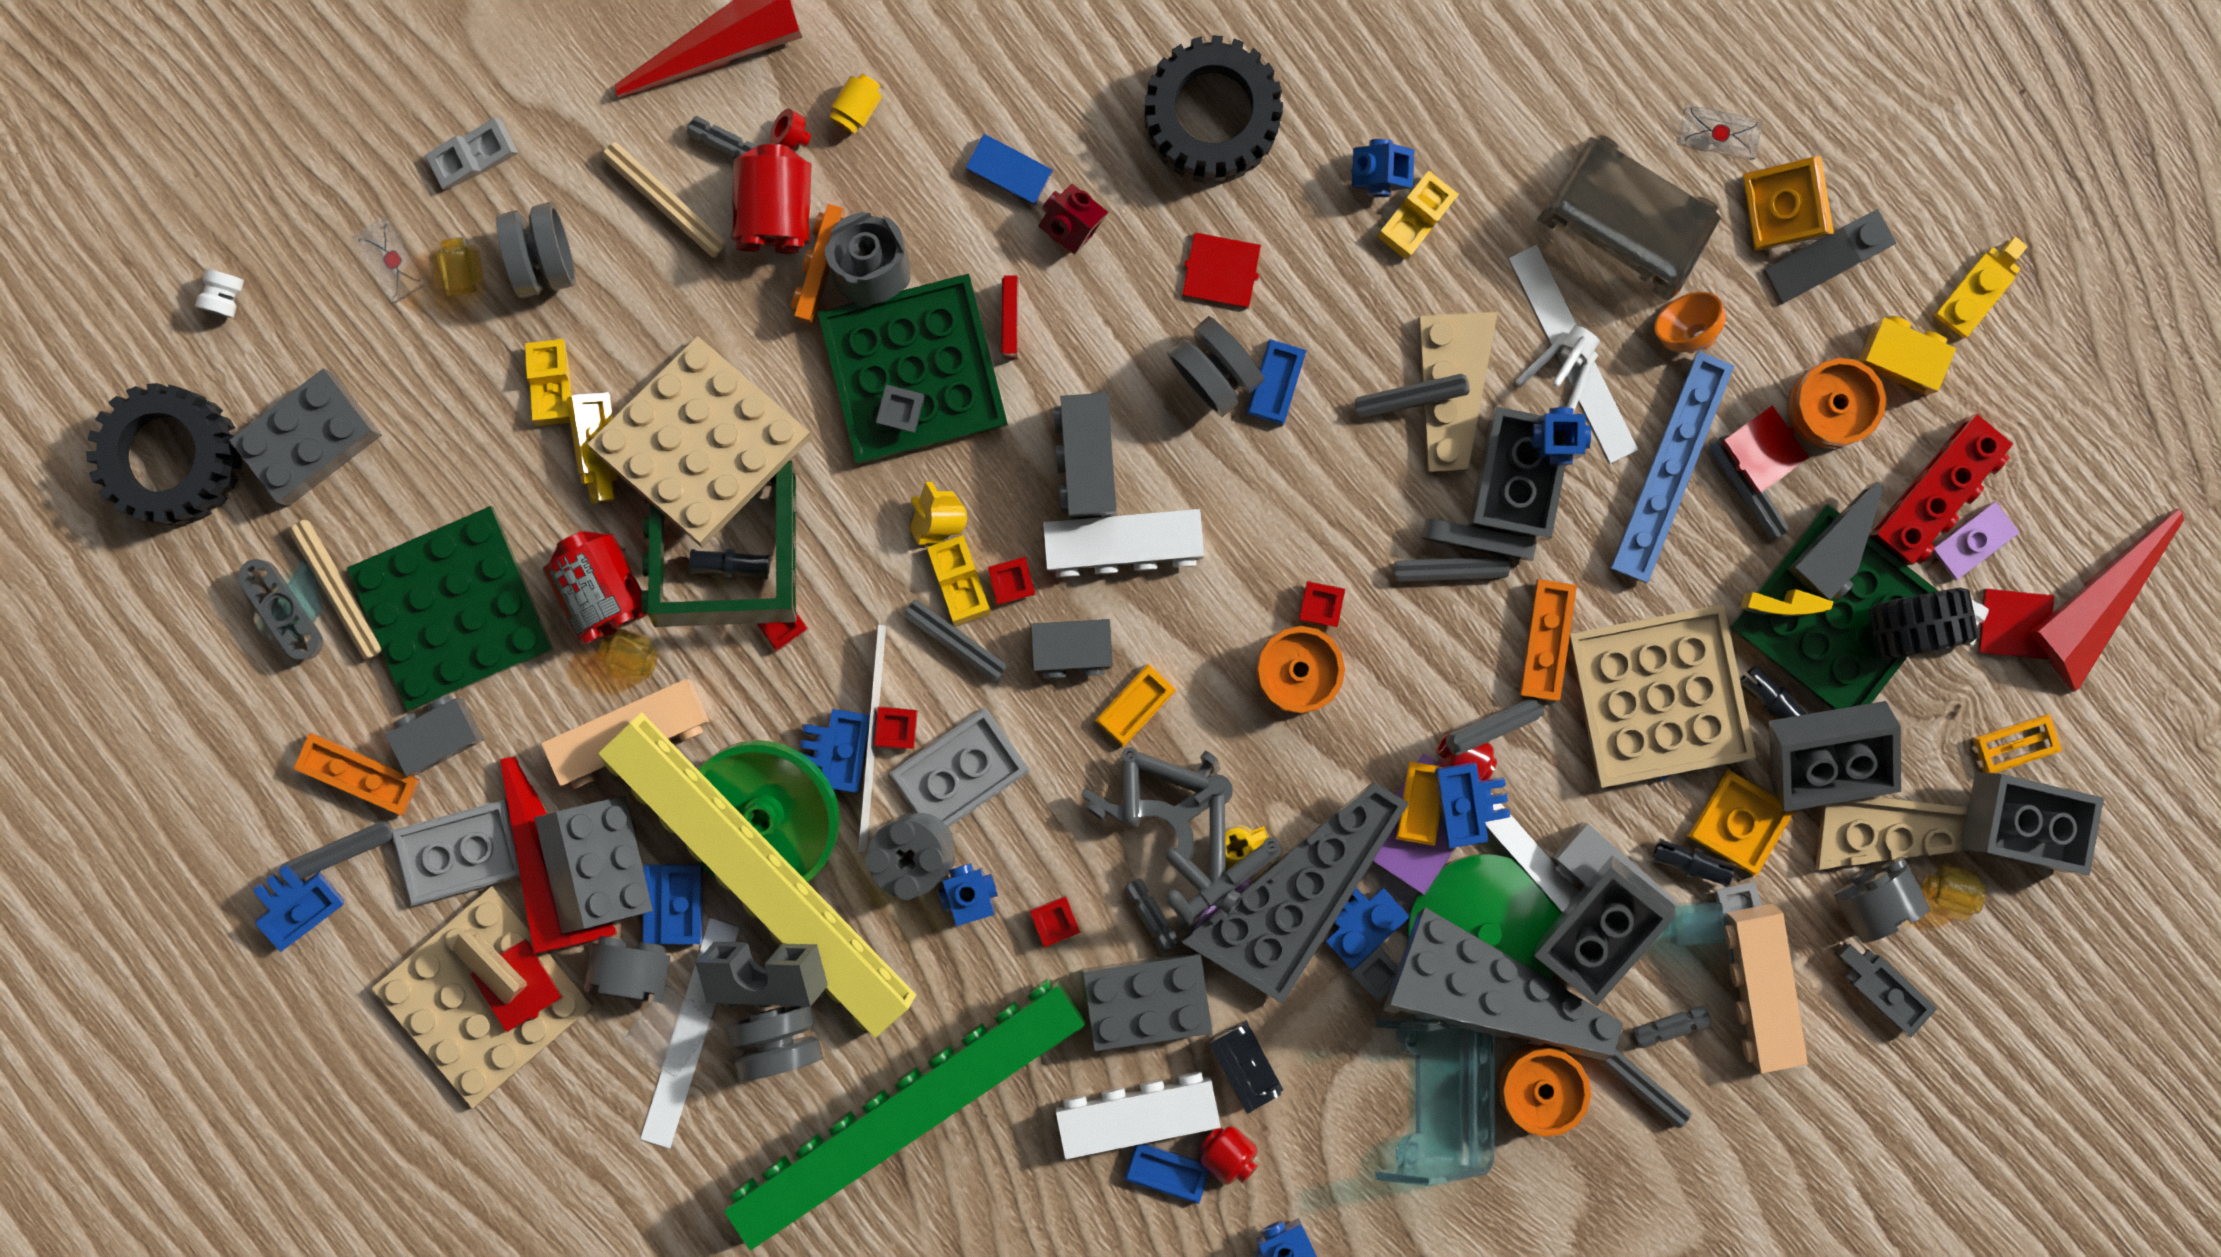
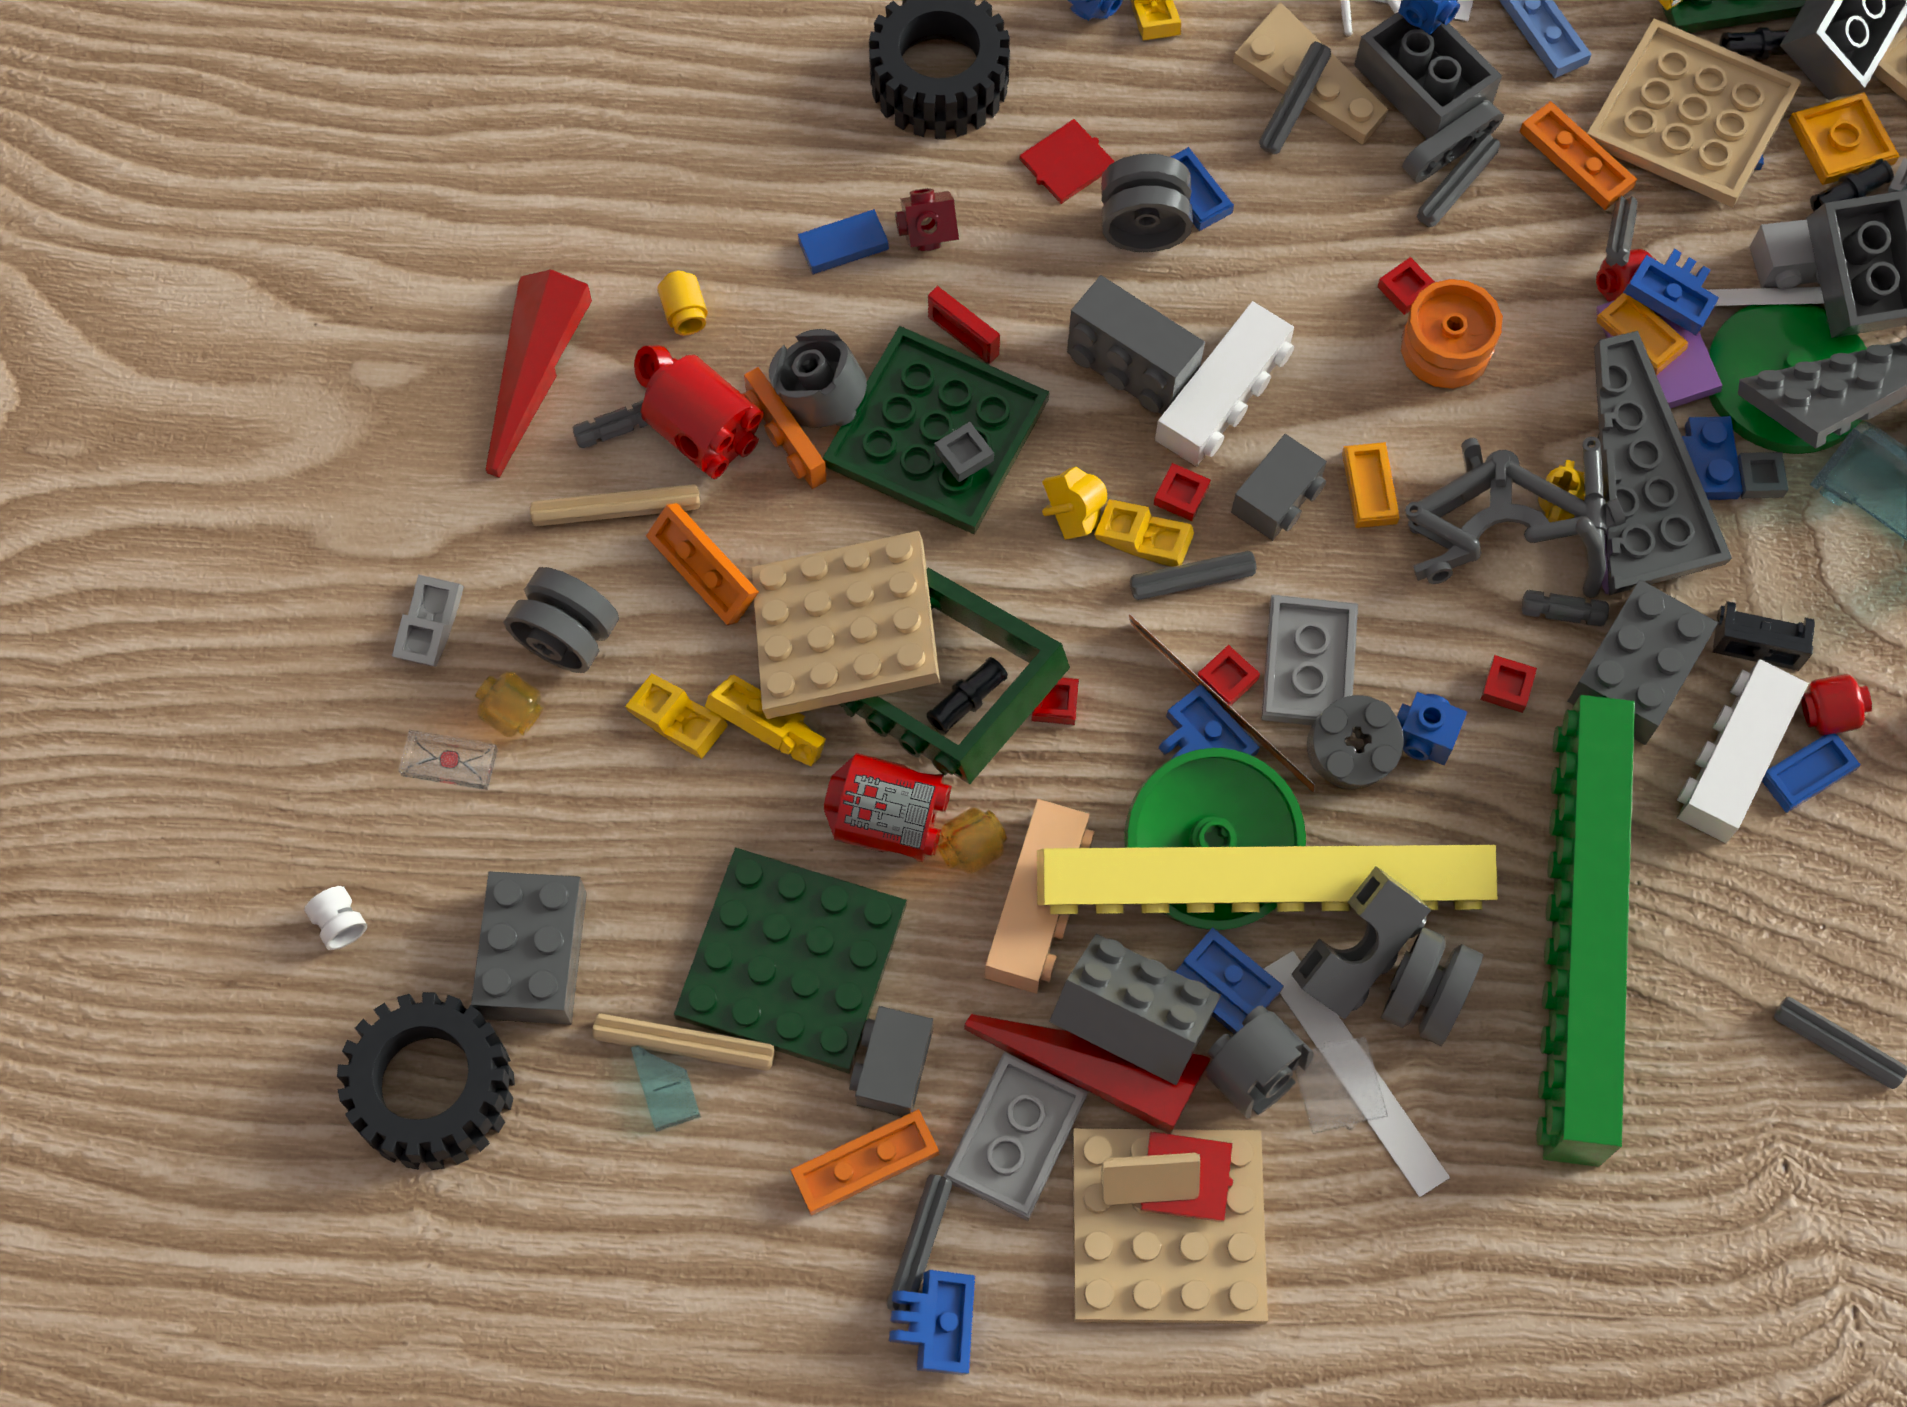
camera: 50 degrees left, 20 degrees down
(272, 580) = (625, 1081): dark grey beam -> none
(669, 300) = (702, 564): none -> orange plate

